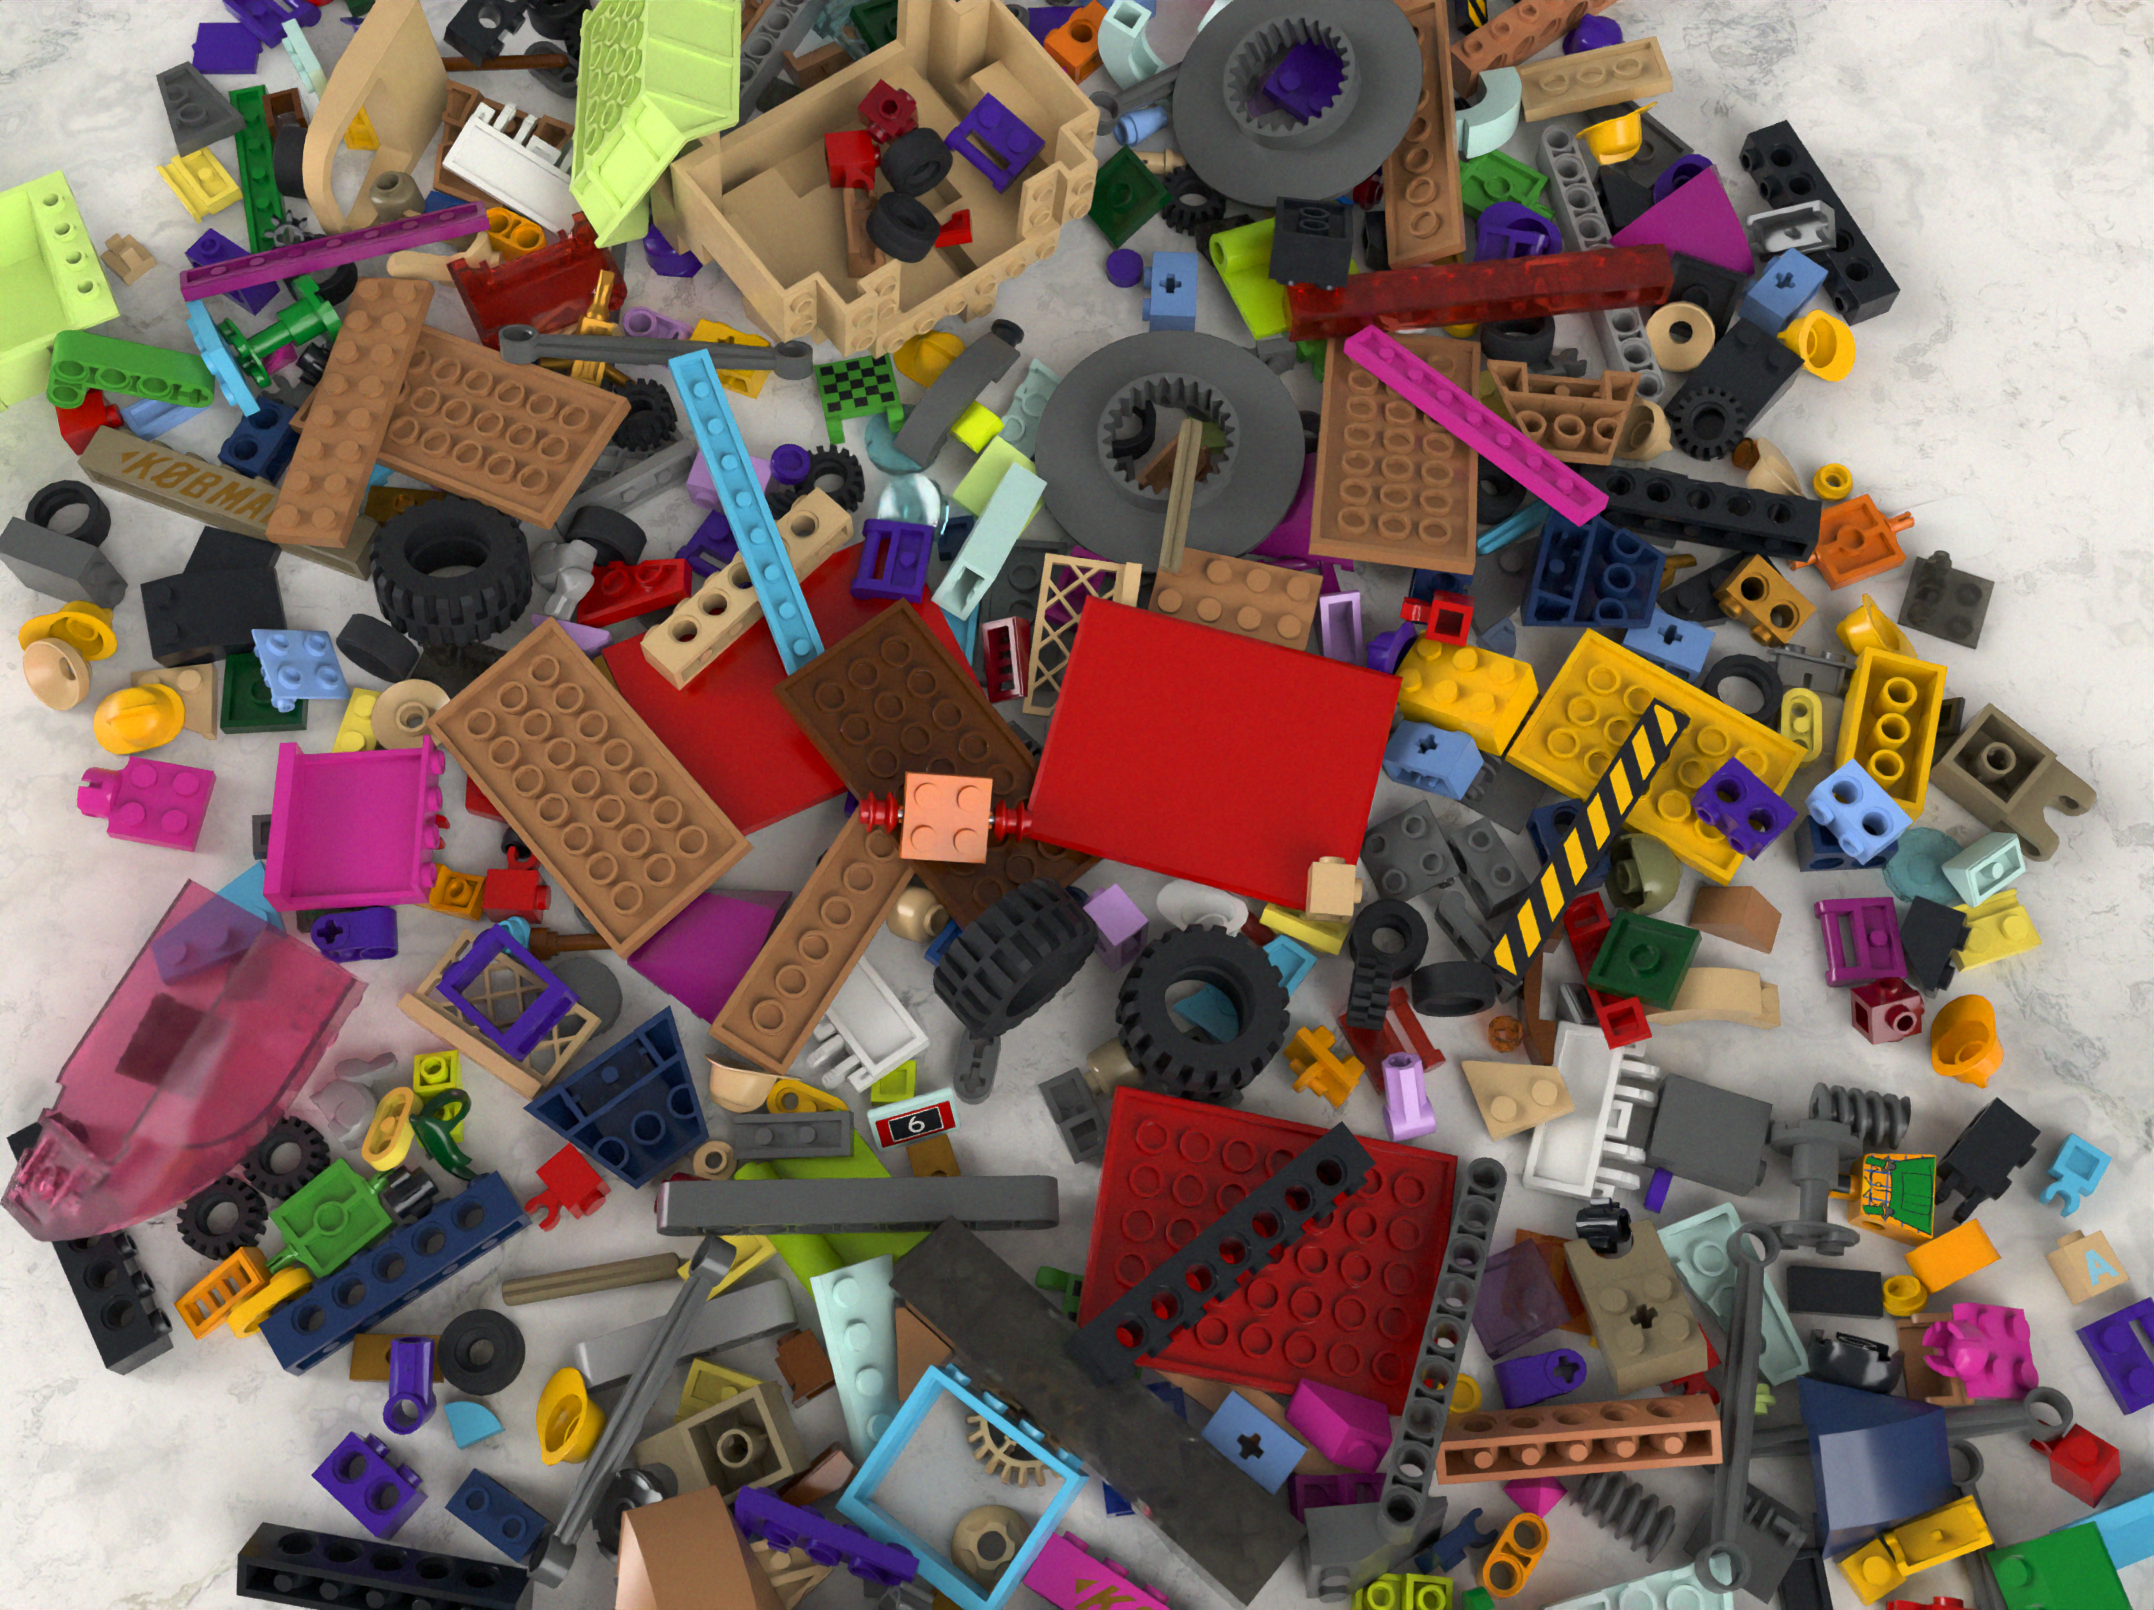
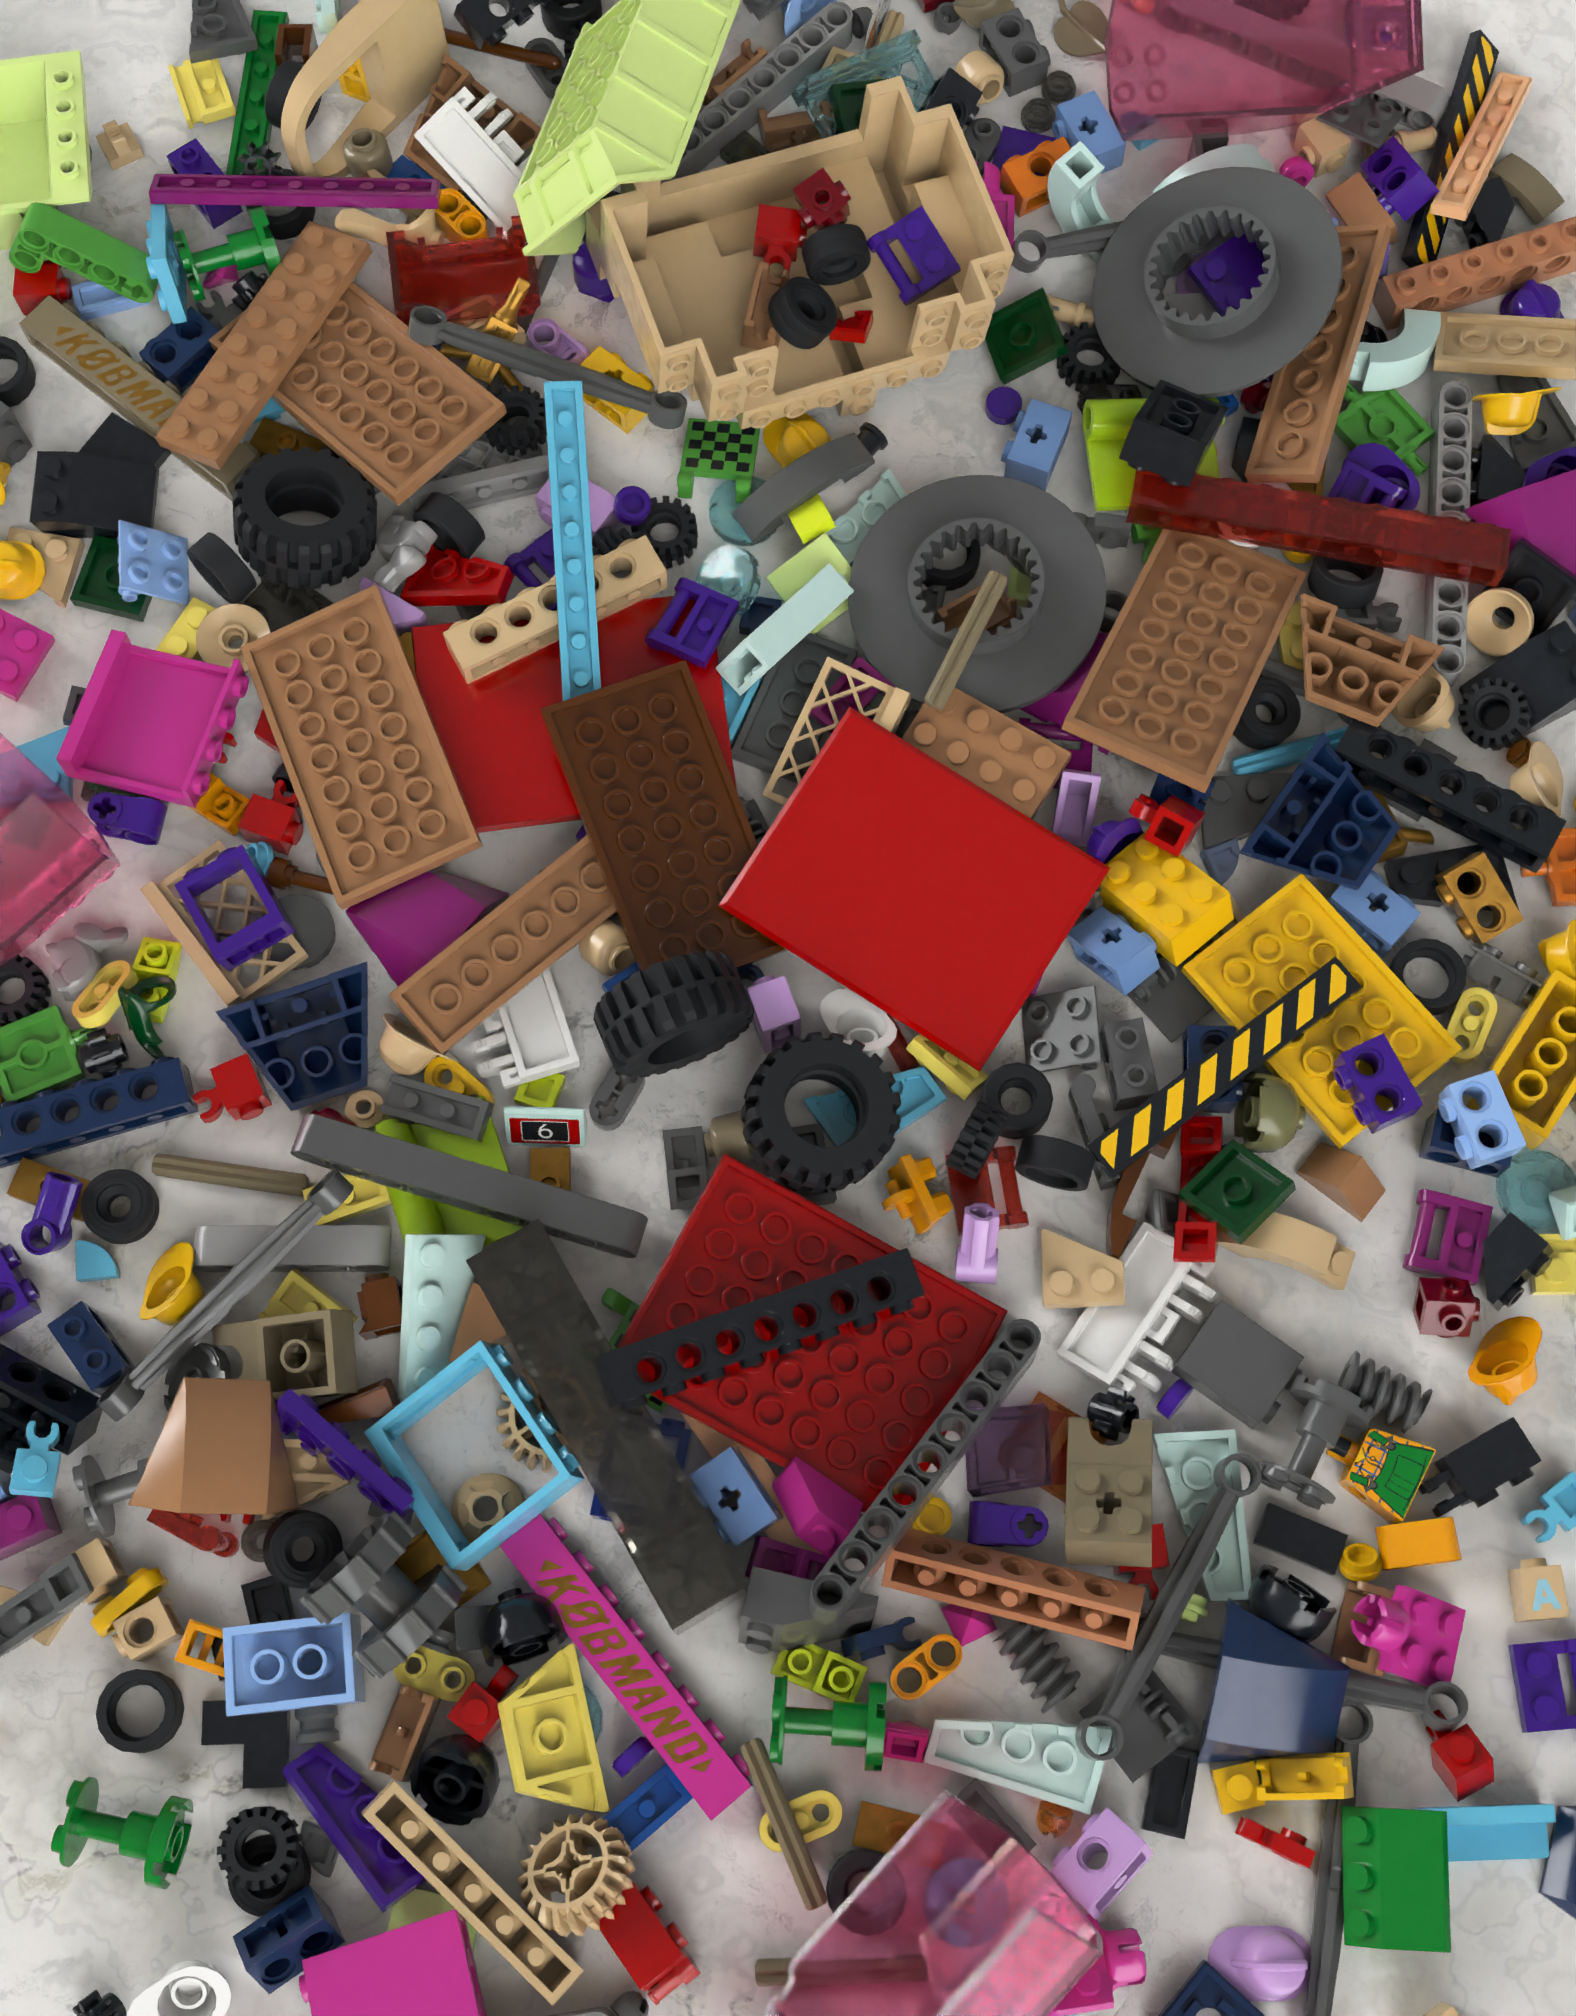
camera: 20 degrees right, 5 degrees up
(945, 817) = (654, 870): orange plate -> none
(993, 646) = (757, 725): dark red slope -> none
(1139, 125) = (1066, 271): light blue cone -> none
(1332, 890) = (976, 1041): tan brick -> none
(1476, 425) = (1264, 653): dark pink plate -> none
(1513, 1034) = (1098, 1219): clear orange hinge -> none

